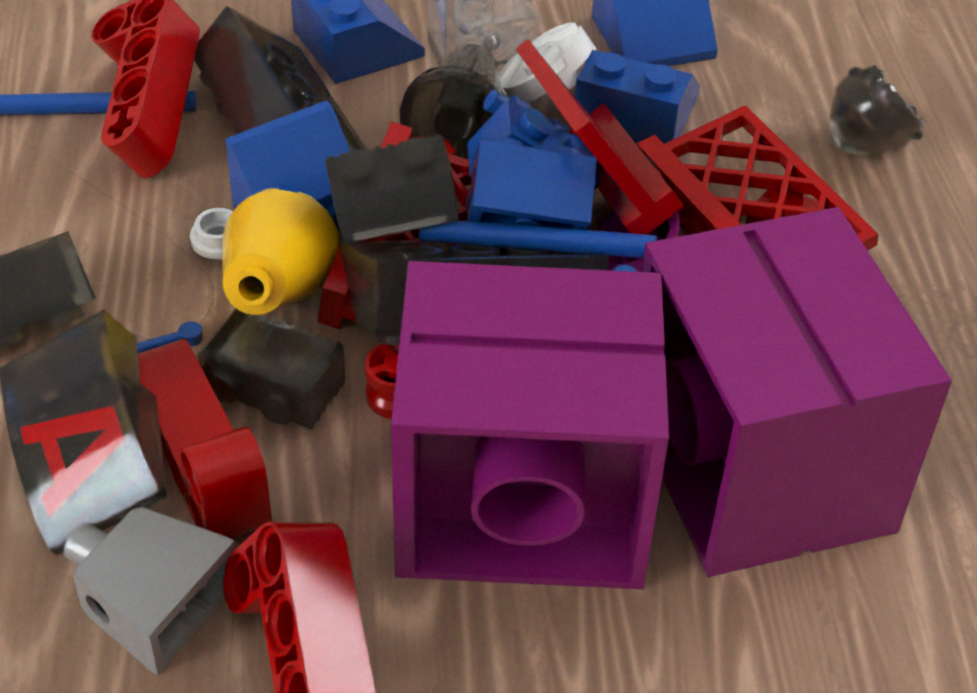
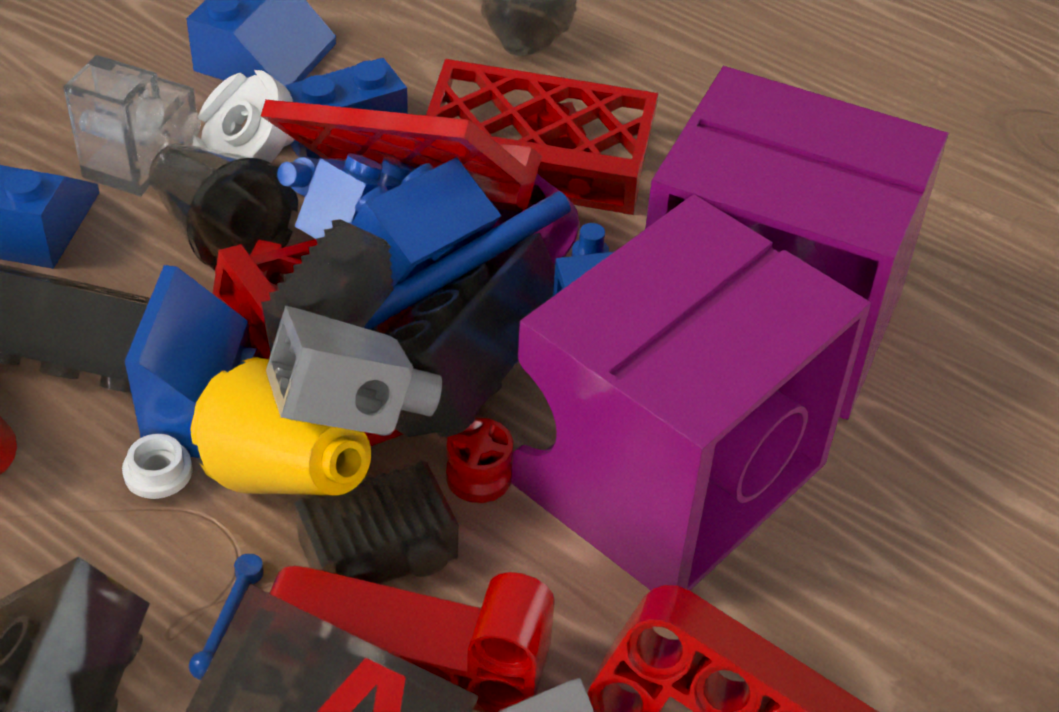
camera: 50 degrees left, 0 degrees up
(304, 229) = (345, 375): none -> light grey torso

